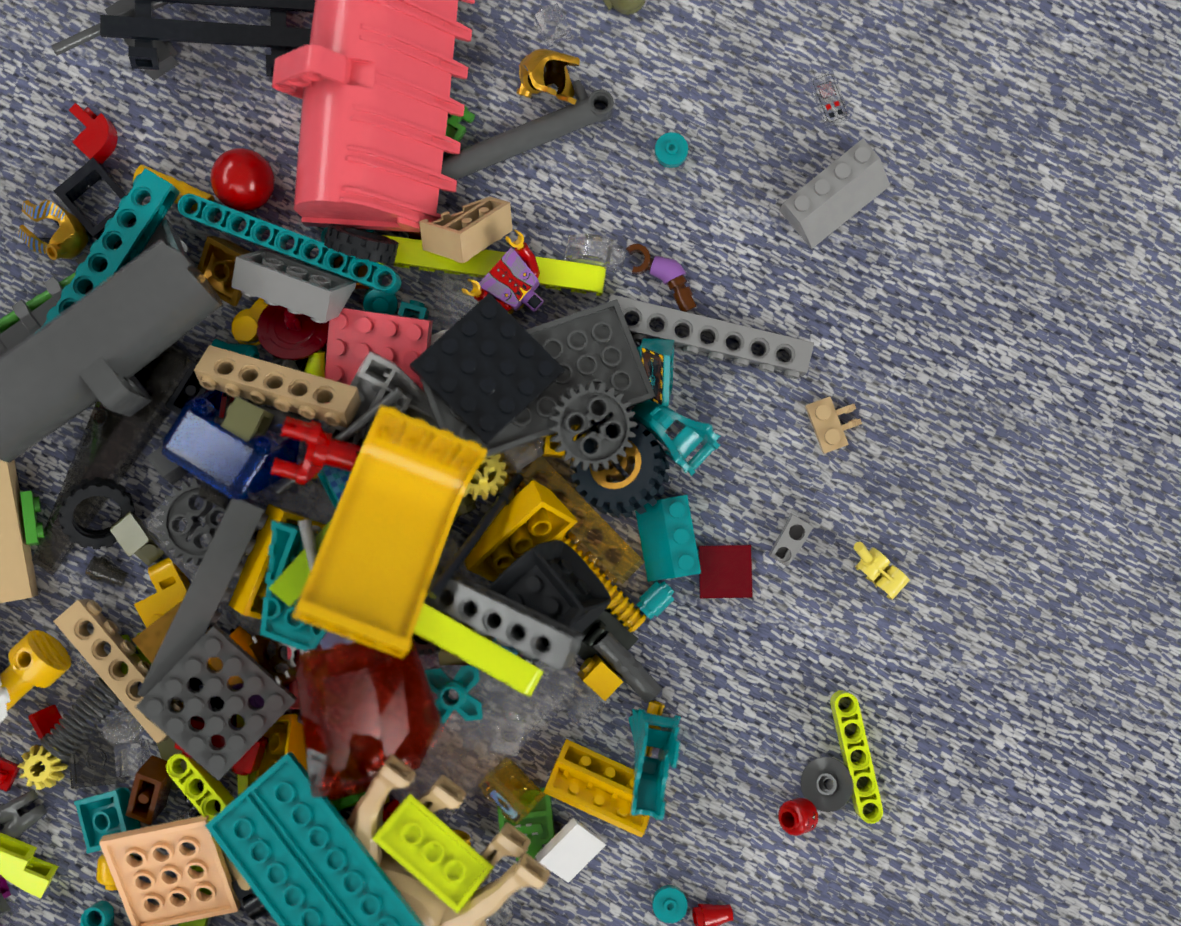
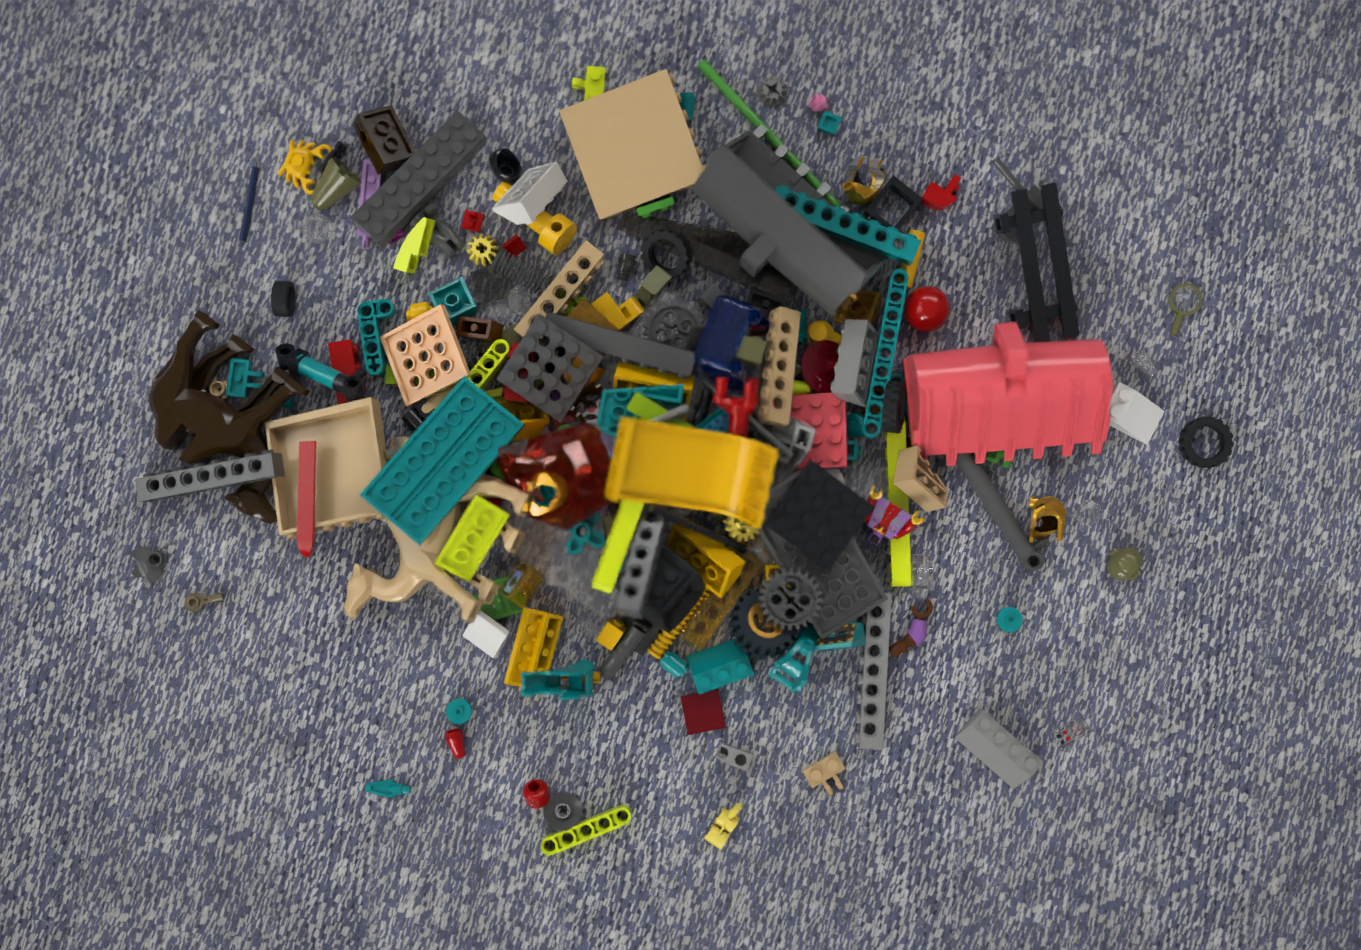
camera: 85 degrees right, 0 degrees up
(313, 500) = (702, 407): none -> black pin
(384, 729) = (552, 490): none -> pearl gold piece

